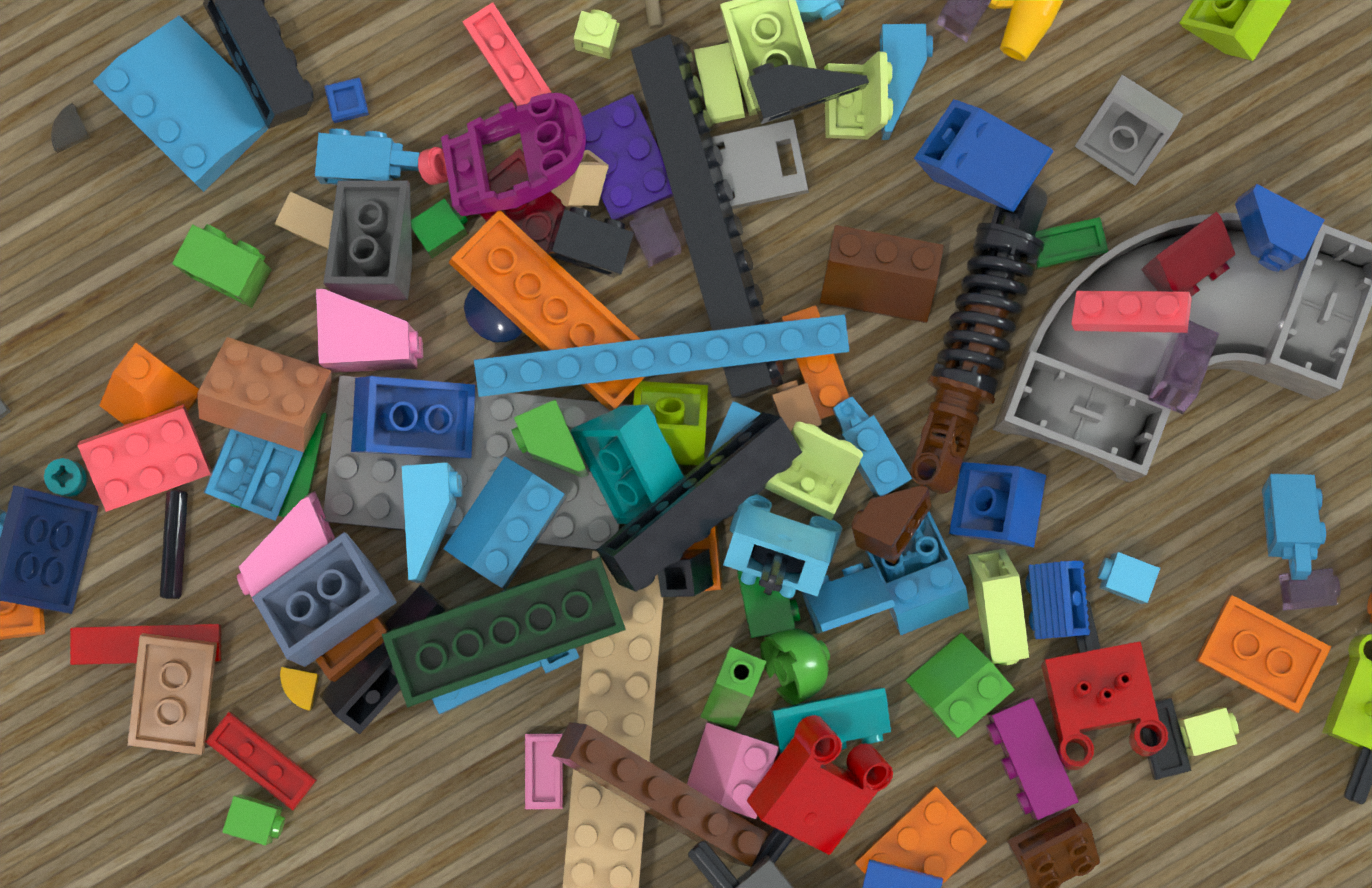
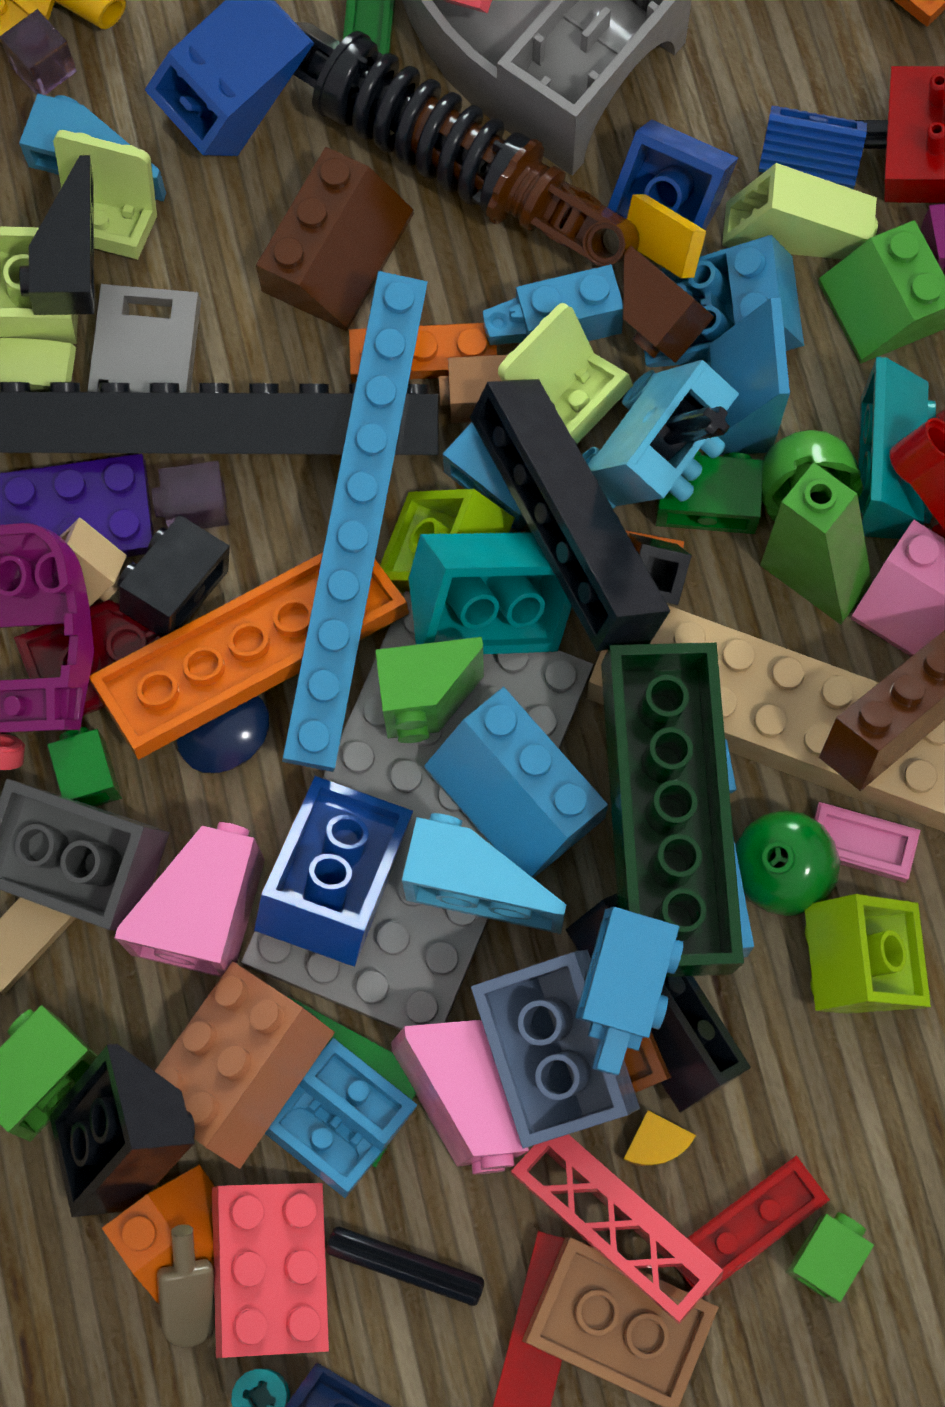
camera: 70 degrees left, 10 degrees down
(114, 409) = (186, 1293): none -> dark tan piece
(194, 333) = (118, 1133): none -> black slope
(240, 688) = (635, 1215): none -> coral fence
(365, 632) = (626, 983): none -> dark azure hinge
(461, 794) = (866, 955): none -> lime slope
(510, 722) = (808, 871): none -> green cylinder
(949, 511) = (666, 236): none -> yellow tile
(1128, 577) = (806, 66): medium azure brick -> none

